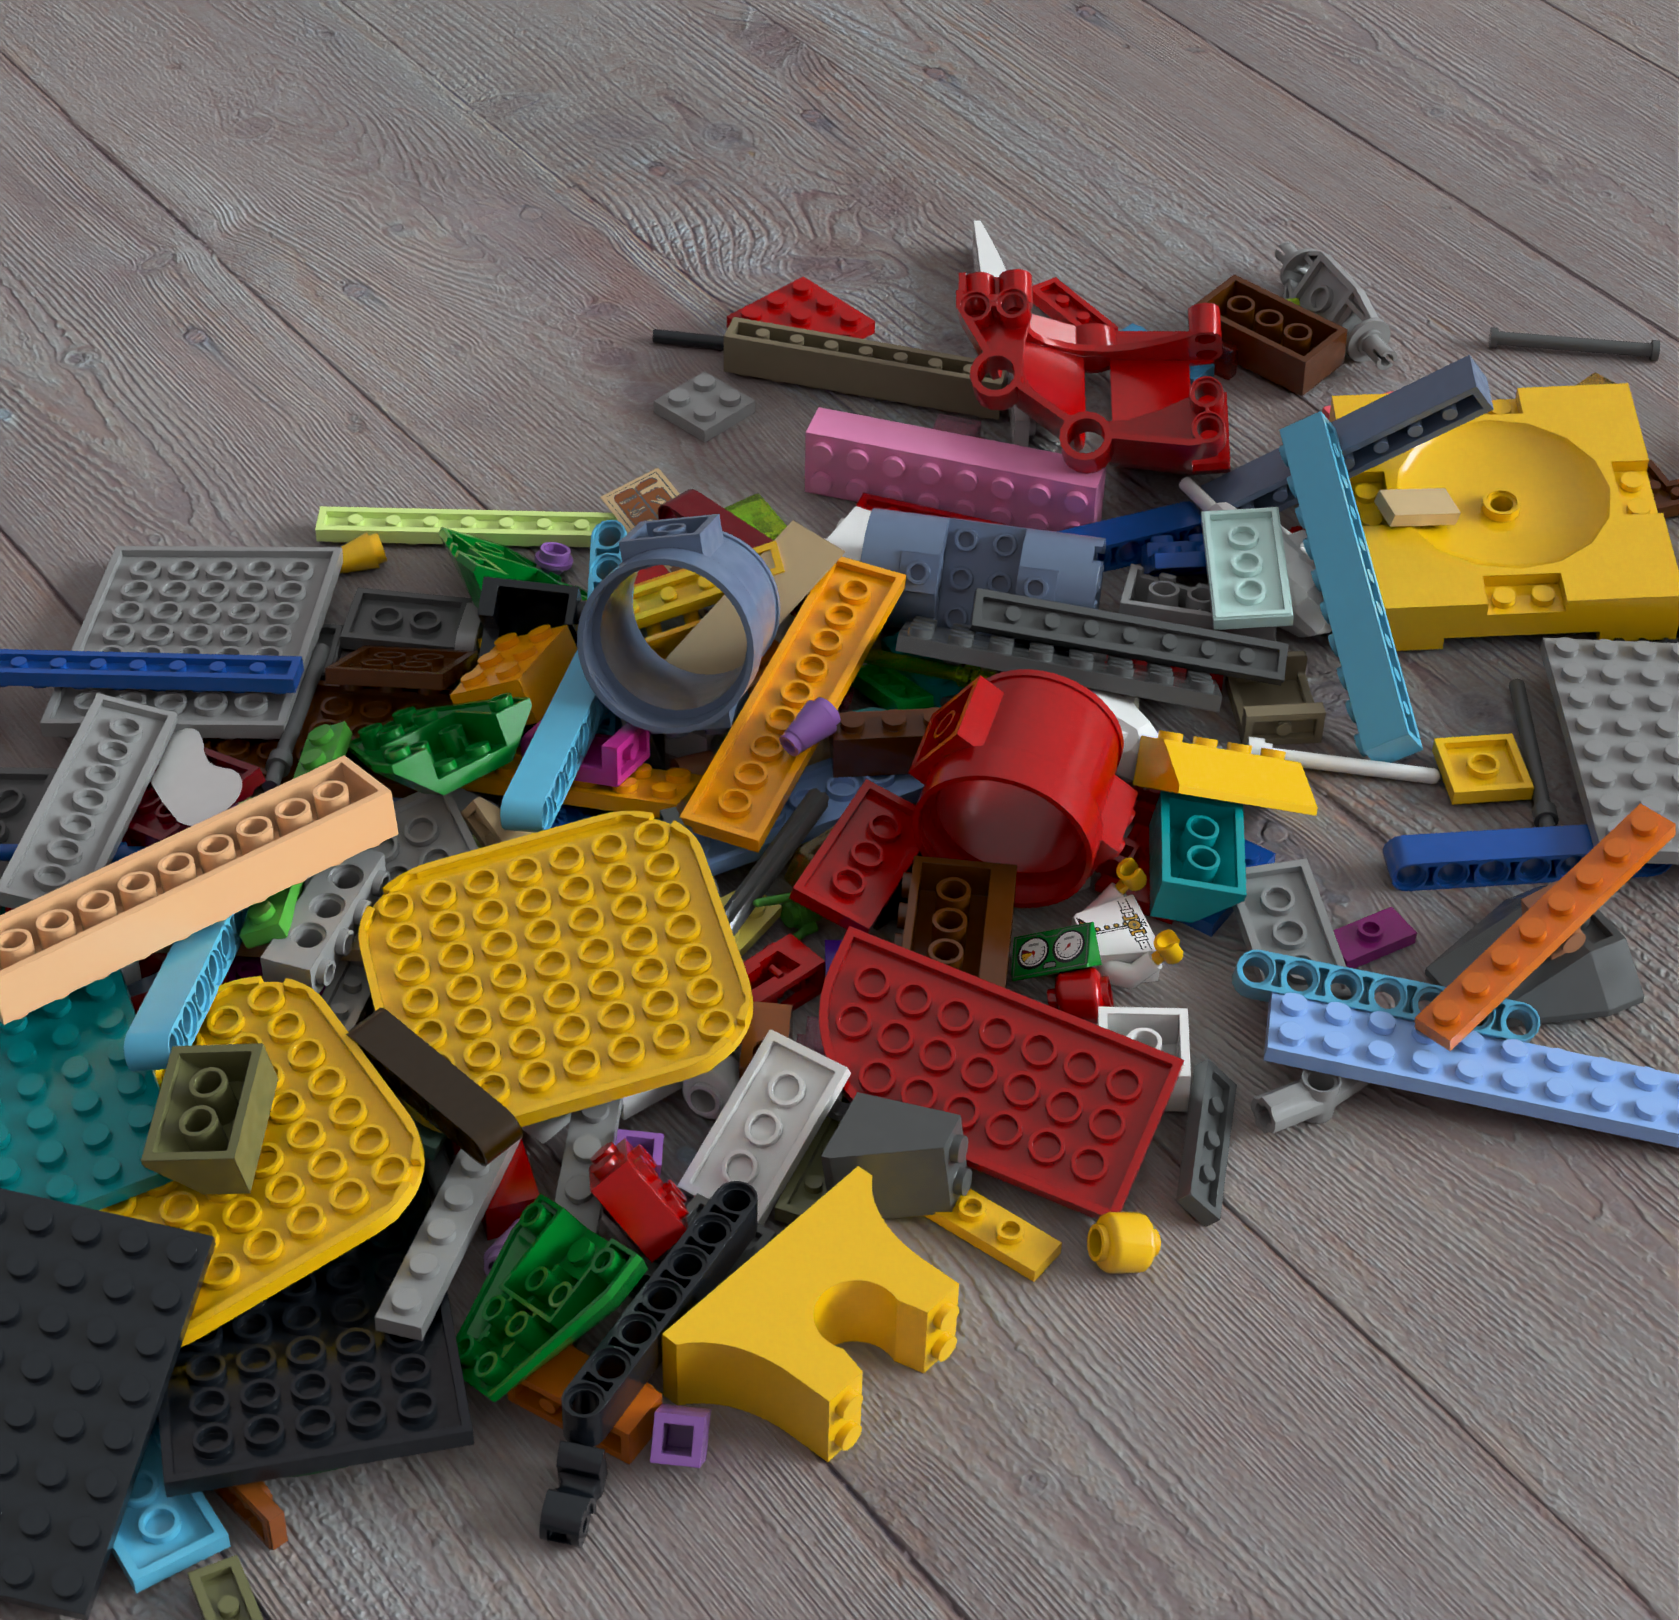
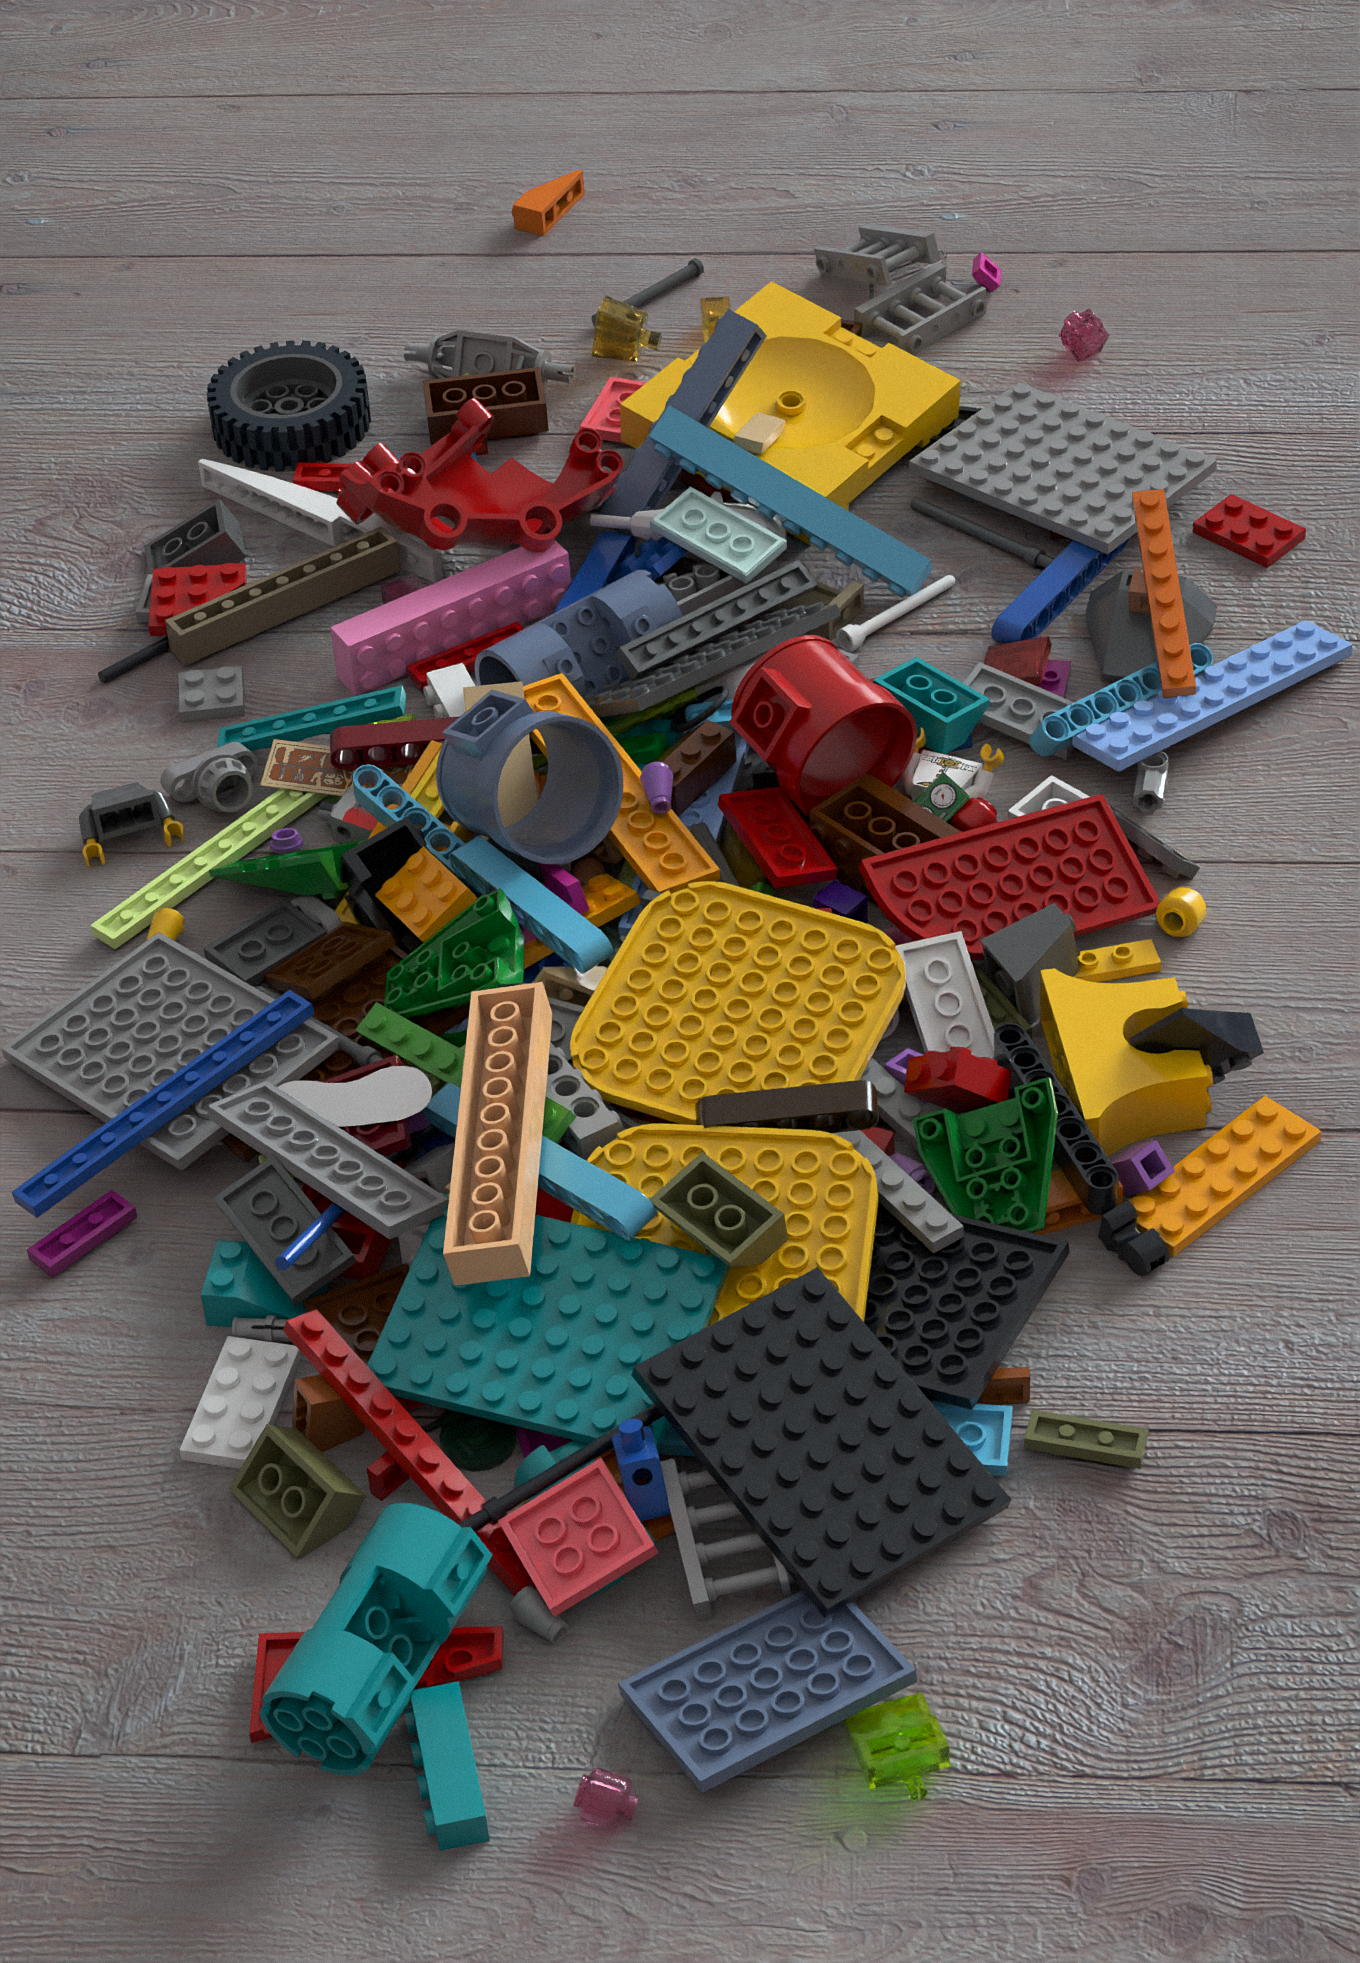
camera: 45 degrees left, 0 degrees up
(476, 440) = (124, 812): none -> dark grey torso
(584, 467) = (214, 778): none -> light grey beam
(710, 477) = (317, 719): none -> teal plate
(758, 1517) = (1224, 1173): none -> light orange plate
(883, 287) = (204, 539): none -> dark grey slope
(897, 1377) = (1223, 1038): none -> black slope
(1119, 228) = (289, 405): none -> black wheel
(1223, 774) = (889, 645): yellow slope -> none
(1361, 893) = (1021, 658): none -> clear red tile
(1482, 768) = (971, 556): yellow plate -> none
(1490, 347) = (622, 331): none -> clear yellow torso
(1608, 213) = (546, 204): none -> orange slope

